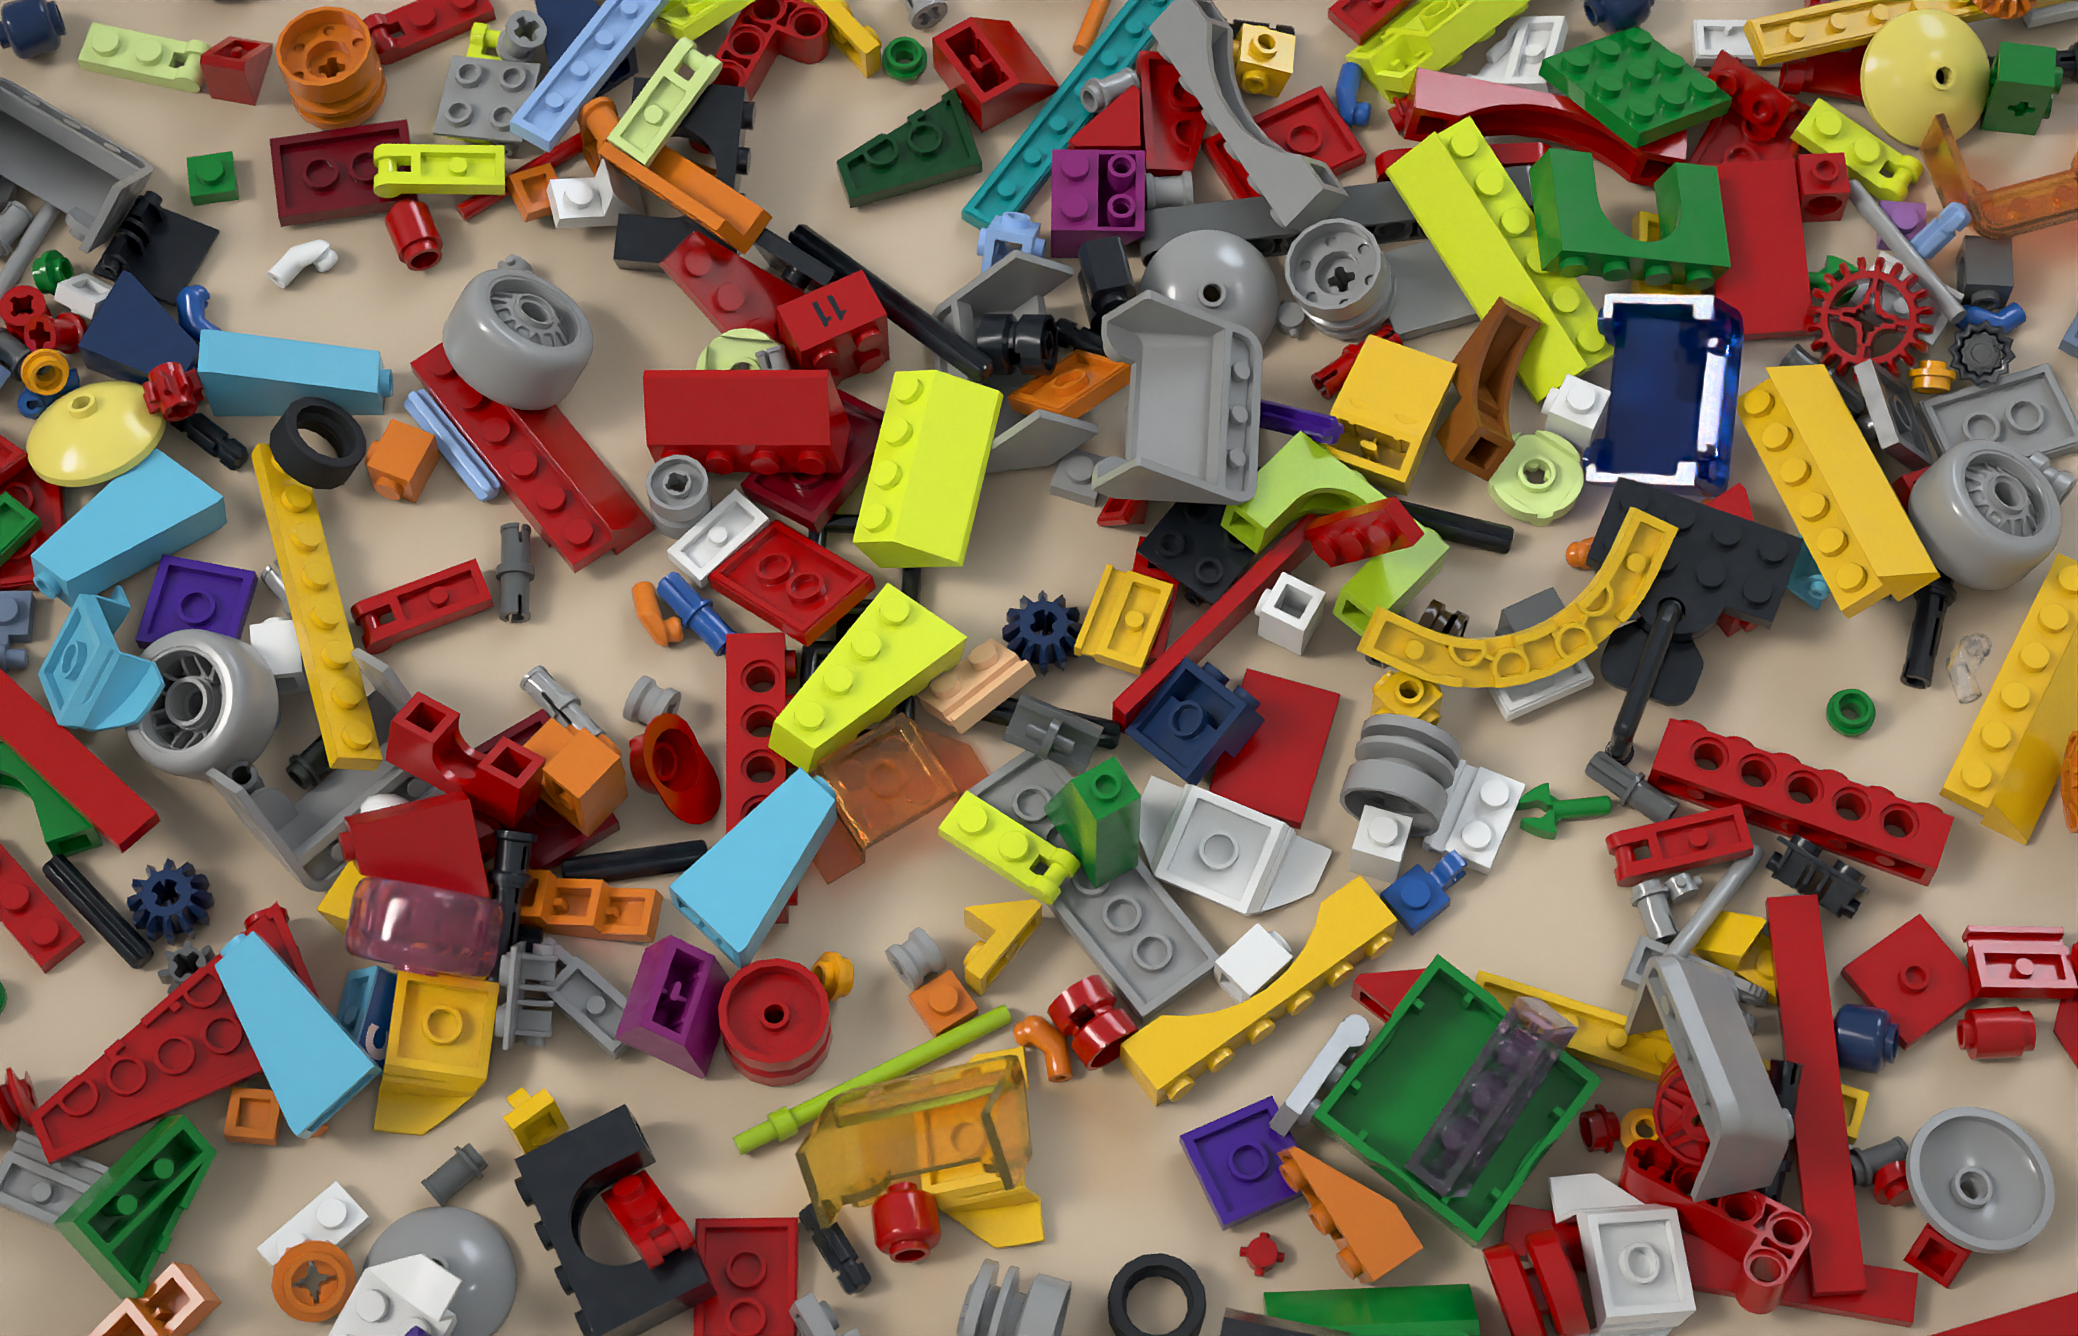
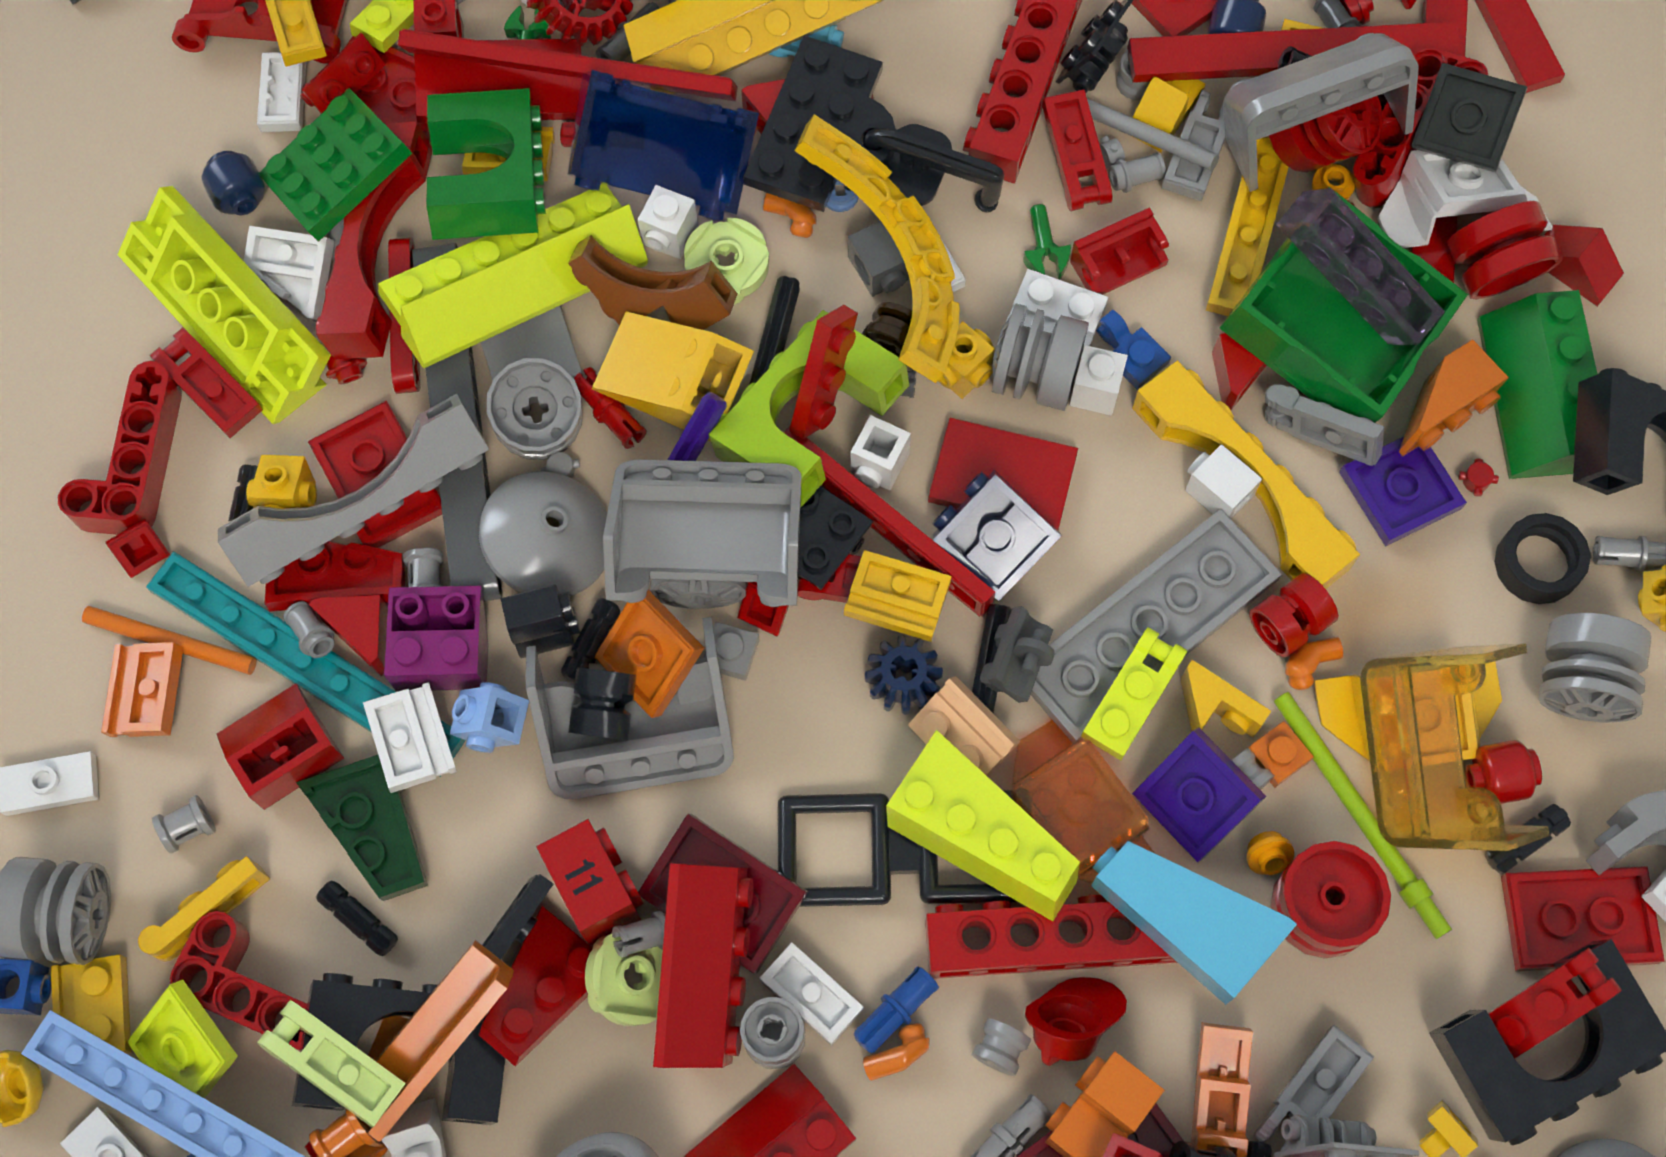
camera: 90 degrees left, 5 degrees up
(635, 862) = (1166, 1054): black axle -> none
(675, 1005) = (1330, 999): magenta slope -> none
(791, 582) = (867, 912): red tile -> none
(821, 148) = (357, 918): none -> black axle
(895, 903) = (1198, 794): none -> dark purple plate
(899, 308) = (561, 818): black axle -> none
(901, 49) = (245, 829): green plate -> none
(927, 470) = (750, 777): neon yellow slope -> none
(992, 179) = (409, 737): none -> white plate
(1099, 821) = (1126, 596): green slope -> none
(1226, 849) = (1112, 519): white piece -> none
(1347, 93) = (320, 416): blue arm -> none
(1544, 883) = (1120, 252): none -> red hinge
(1630, 788) = (1025, 187): dark grey axle -> none
(1707, 1260) = (1469, 117): none -> pearl dark grey plate
(1755, 304) = (566, 64): none -> red tile
(1853, 700) = (942, 17): green plate -> none

